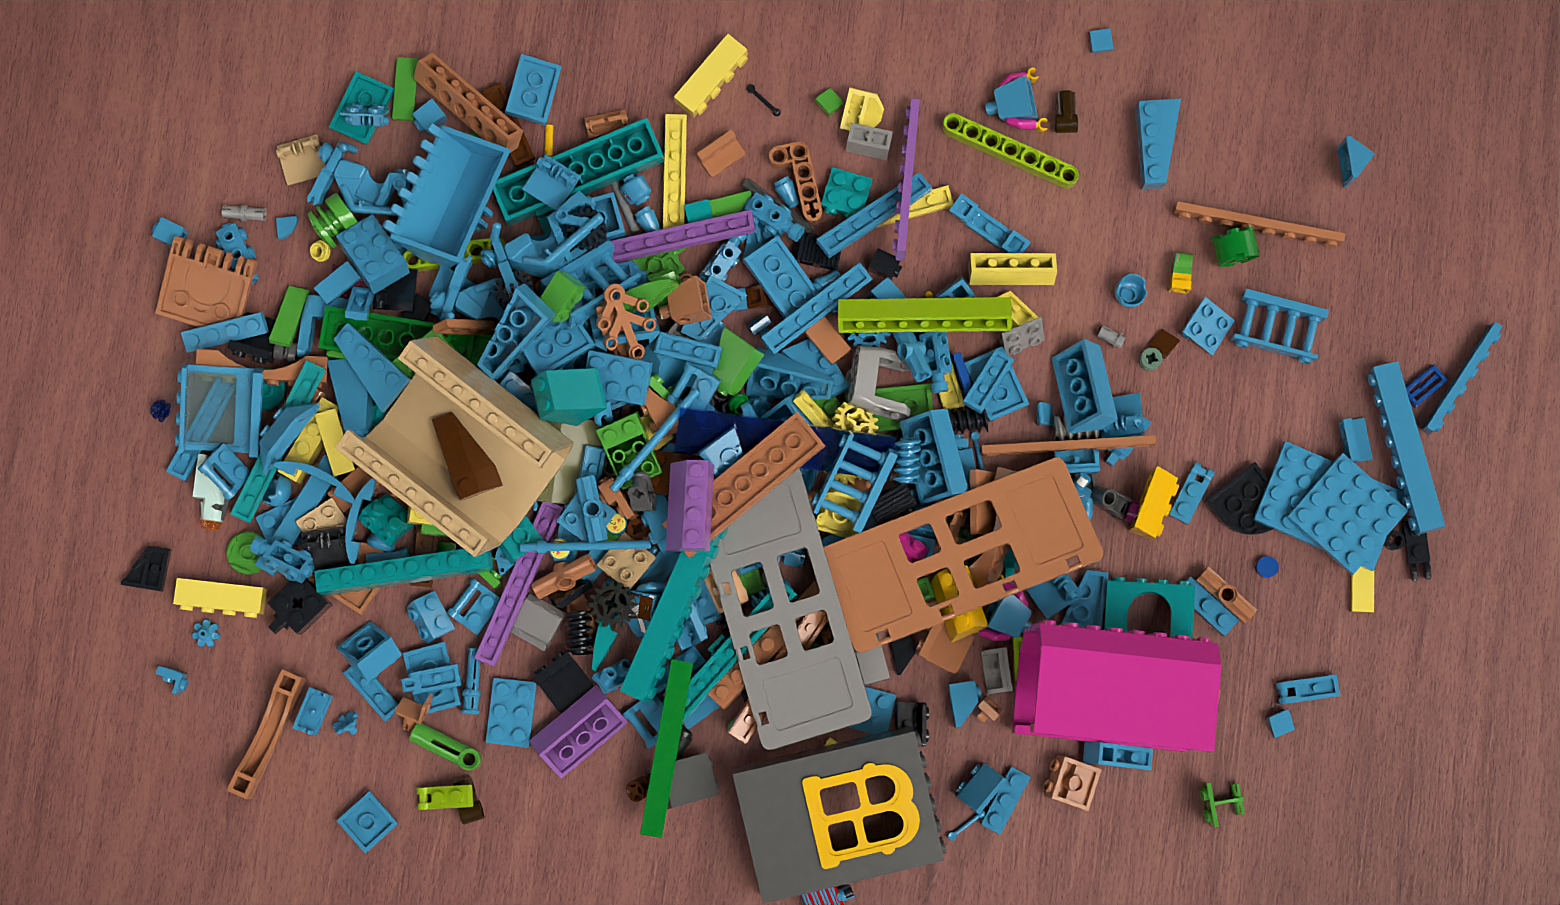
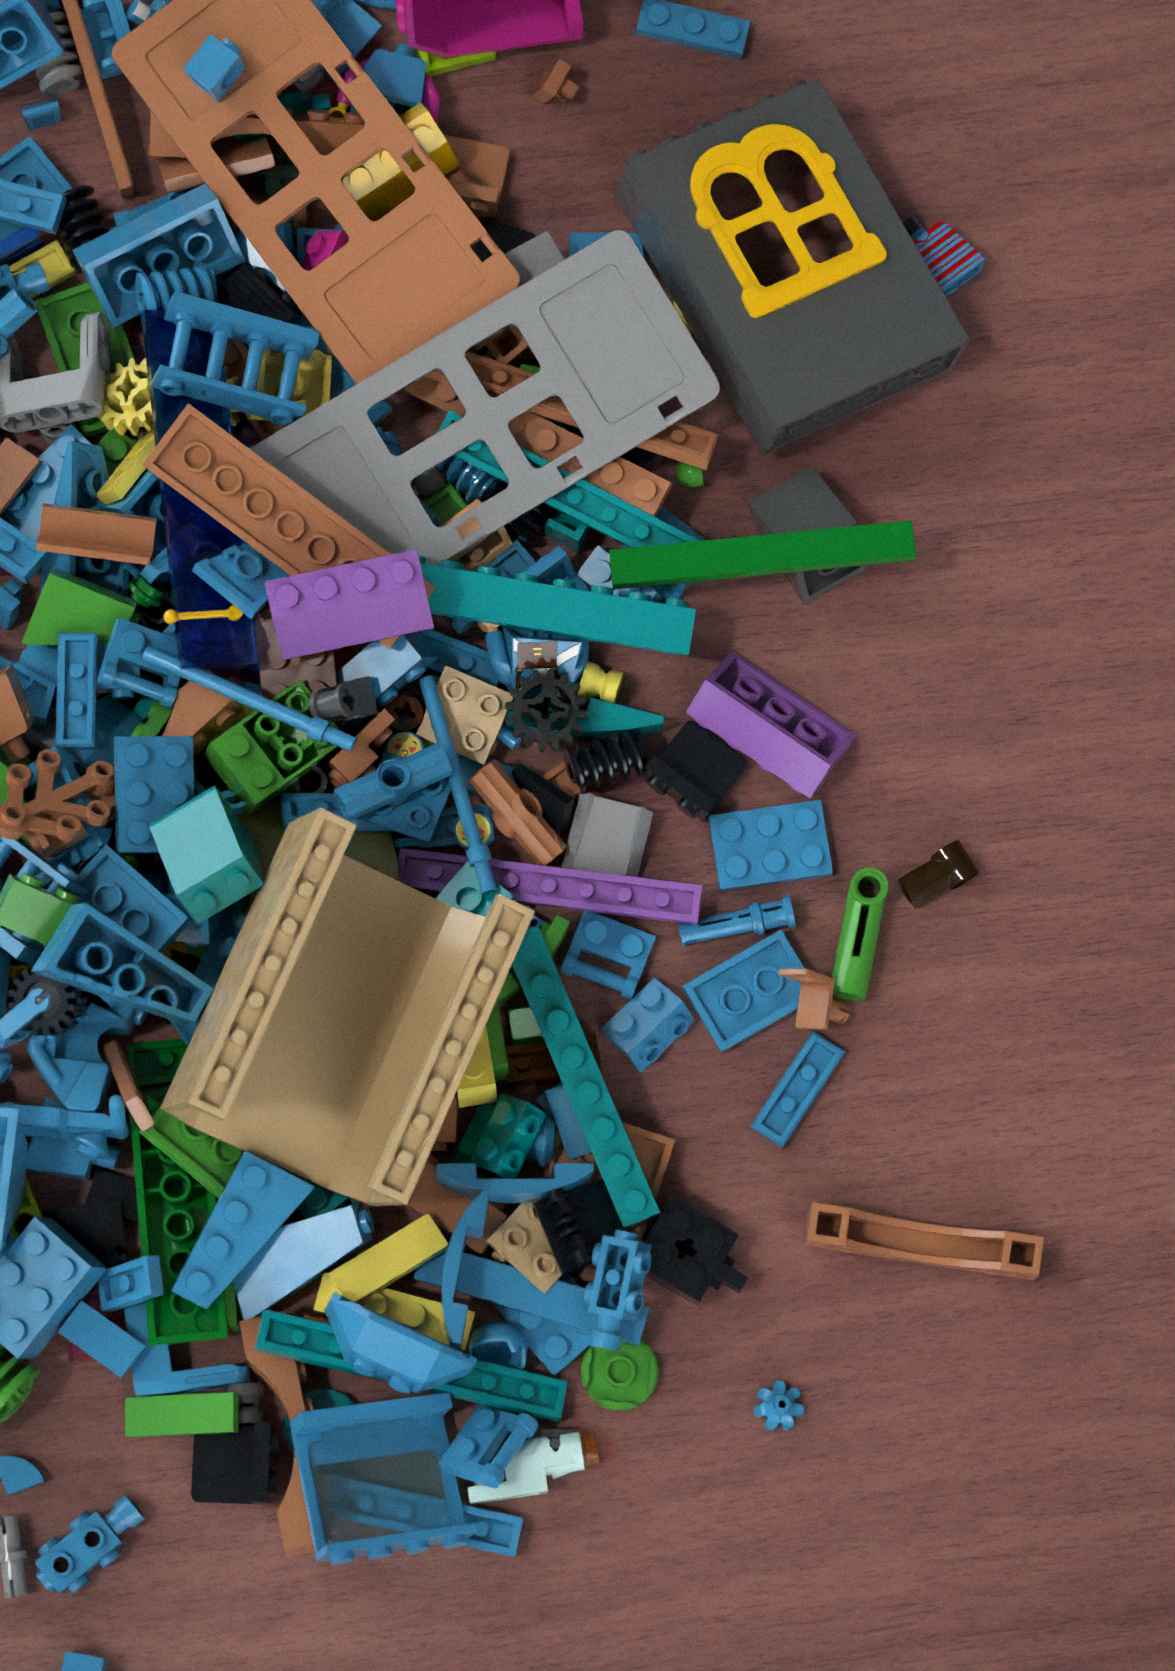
camera: 110 degrees left, 5 degrees down
(149, 570) = (696, 1536): black wing -> none
(160, 410) = (407, 1600): clear blue plate -> none
(169, 675) = (869, 1443): dark azure bracket -> none
(202, 290) = (173, 1579): nougat hinge -> none
(220, 596) = (710, 1396): light yellow brick -> none
(224, 331) = (238, 1523): dark azure plate -> none
(312, 711) = (862, 1178): dark azure hinge -> none
(316, 253) = (55, 1404): light yellow plate -> none
(346, 723) = (865, 1114): dark azure plant -> none
(367, 822) = (1020, 1032): dark azure plate -> none
(369, 651) = (733, 1107): dark azure slope -> none
(432, 680) = (753, 983): dark azure hinge -> none
(445, 797) = (943, 910): lime plate -> none
(467, 462) = (367, 1011): reddish brown wedge -> none
(612, 677) = (662, 685): dark azure hips -> none
(626, 642) = (600, 684): none -> light yellow wheel
(637, 788) = (841, 606): reddish brown wheel -> none
(652, 711) = (712, 602): dark azure plate -> none
(709, 407) = (232, 613): none -> yellow hinge
(772, 381) = (96, 534): none -> nougat panel
(913, 715) = (595, 197): black bracket -> none
(952, 835) = (724, 59): dark azure hinge -> none
(963, 700) = (551, 126): dark azure slope -> none
(975, 436) = (108, 212): dark azure hinge -> none
(980, 788) = (685, 60): dark azure slope -> none
(996, 671) = (487, 85): light grey hinge -> none
(1030, 511) = (215, 66): none -> dark azure brick

